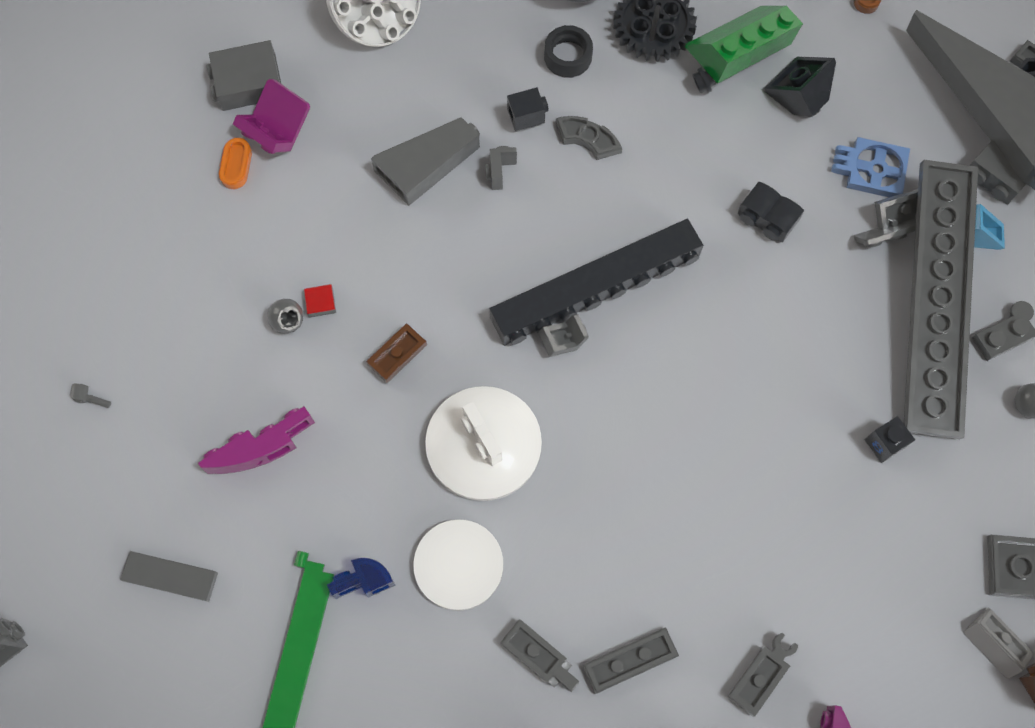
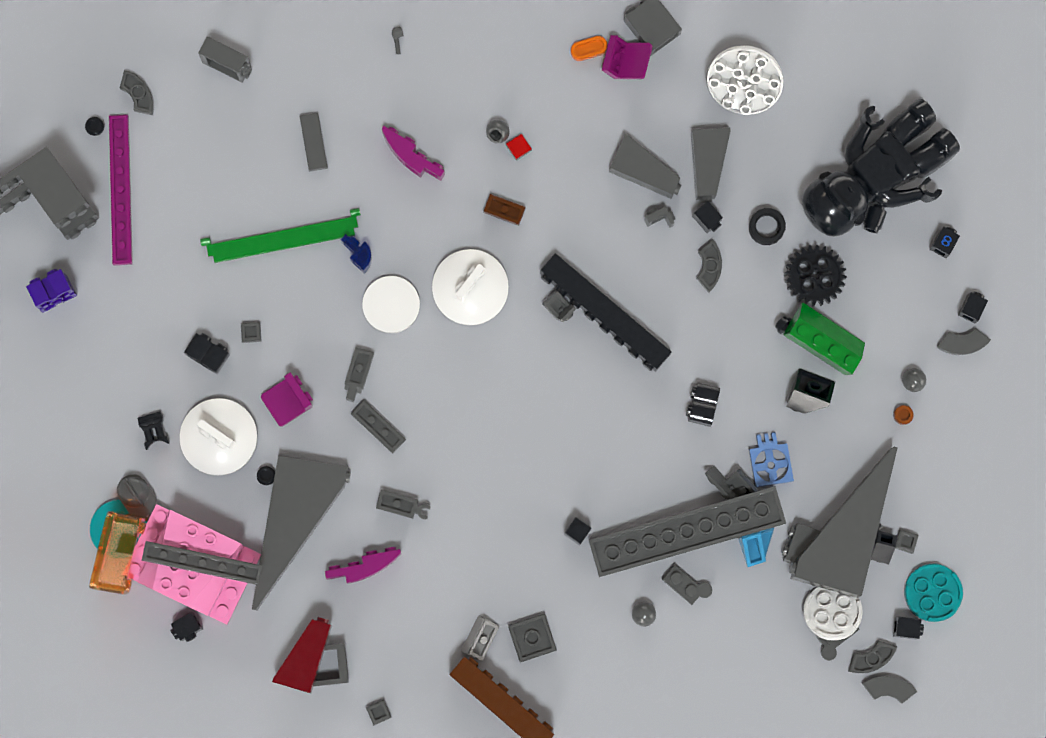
camera: 60 degrees right, 10 degrees up
(453, 81) = (708, 158): none -> dark grey slope

